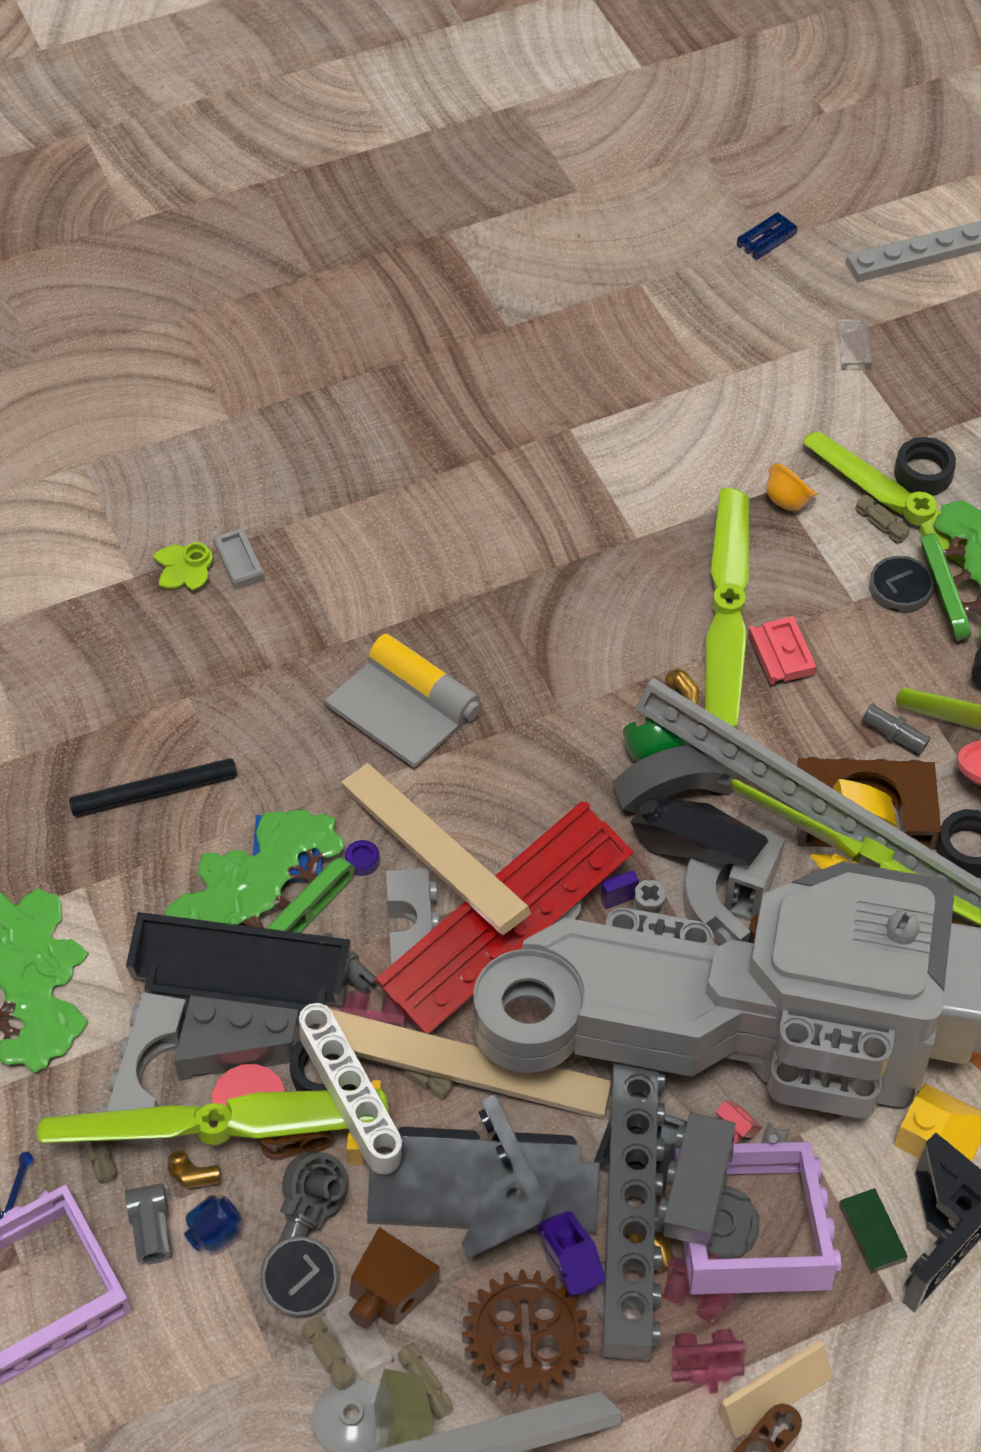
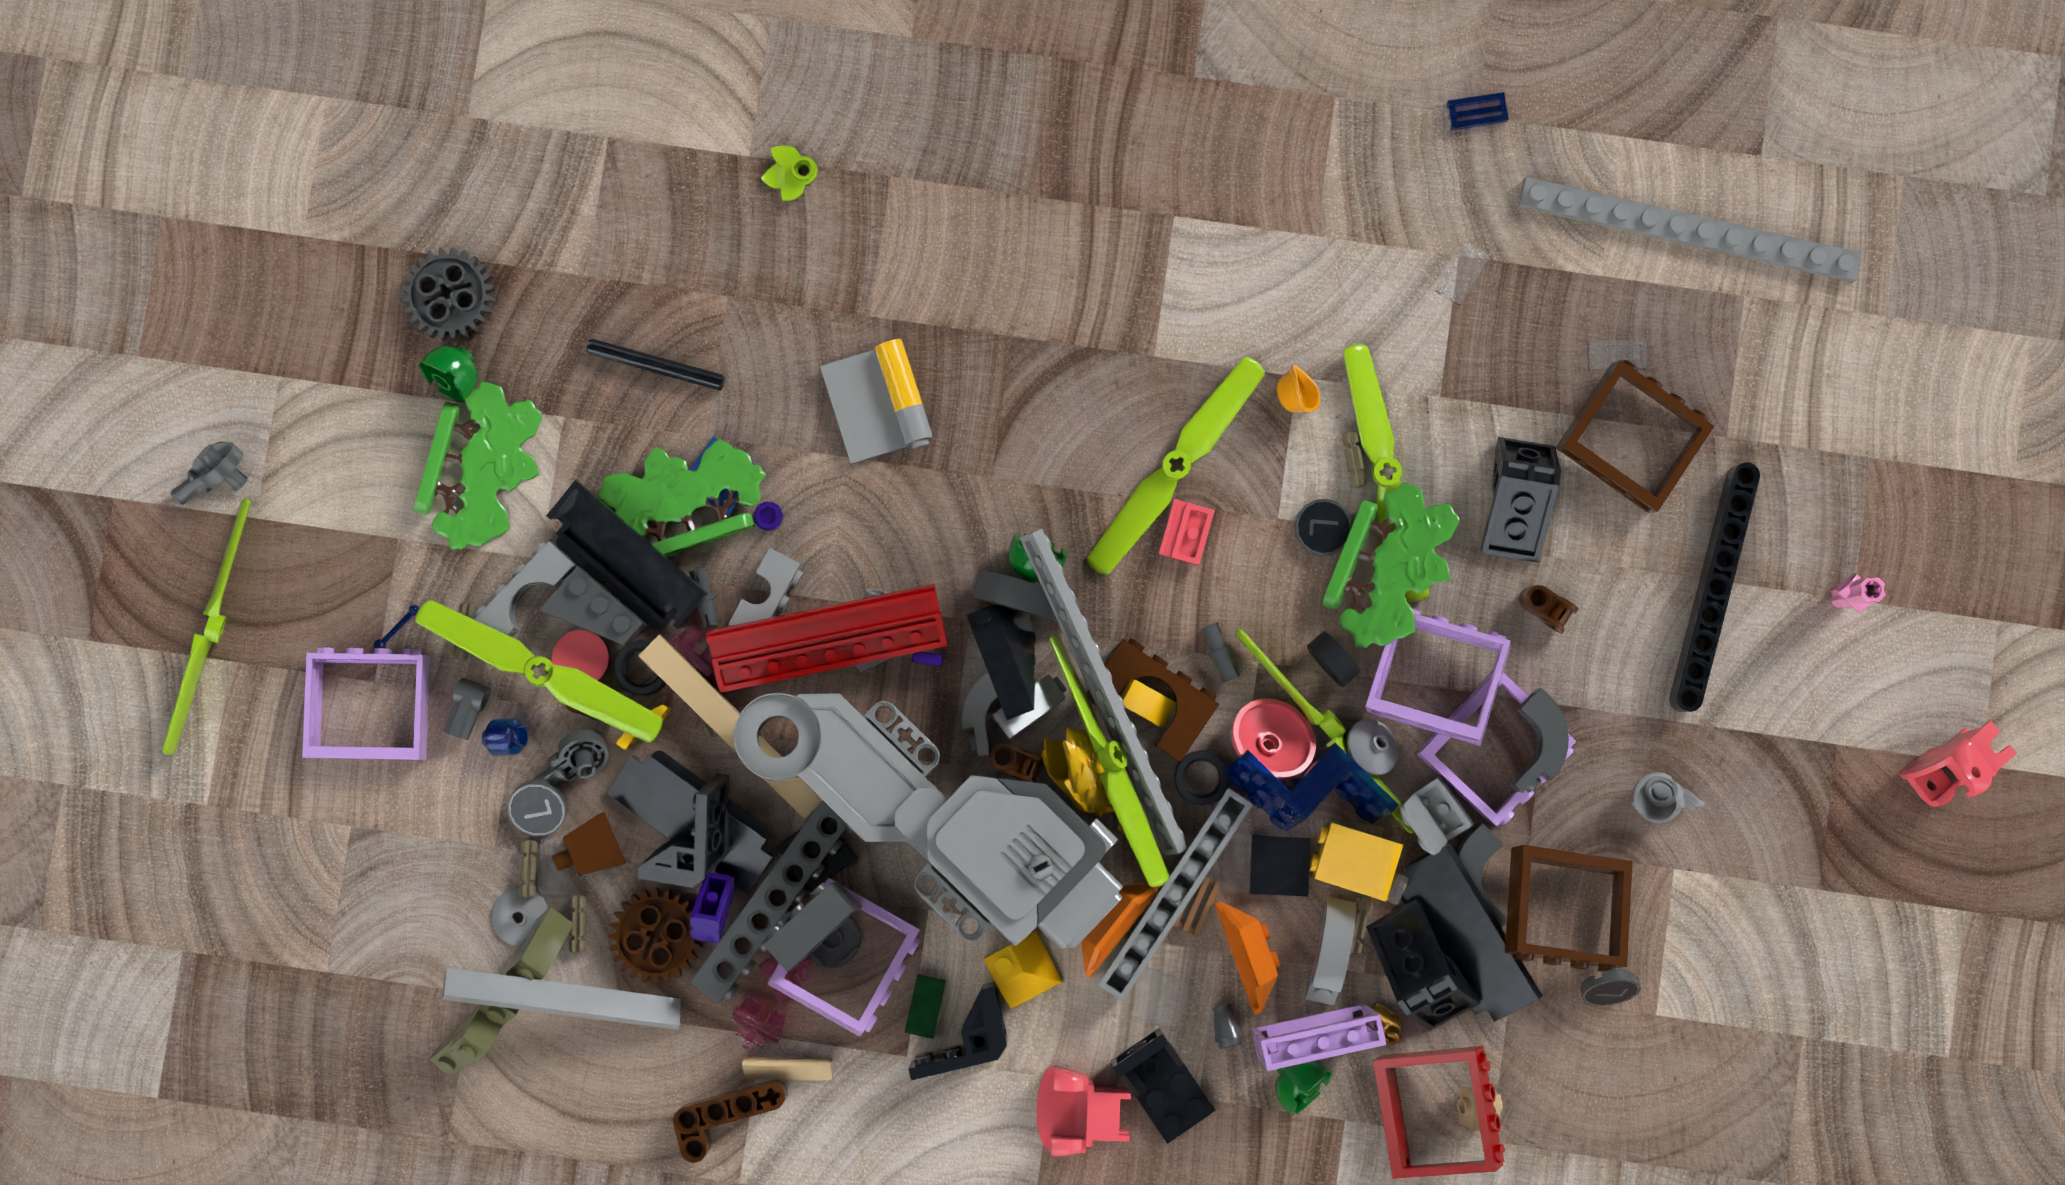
camera: 35 degrees right, 30 degrees up
(190, 1175) = (512, 690): pearl gold arm -> none
(238, 558) = (836, 189): light grey tile -> none
(350, 1103) = (625, 723): white beam -> none
(436, 849) = (810, 553): tan tile -> none
(650, 896) = (948, 686): light grey bush -> none
(681, 680) = (1094, 519): pearl gold arm -> none
(744, 1124) = (888, 880): coral tile -> none
(774, 1135) = (902, 908): light grey hand -> none
(928, 449) = (1422, 411): black tyre -> none

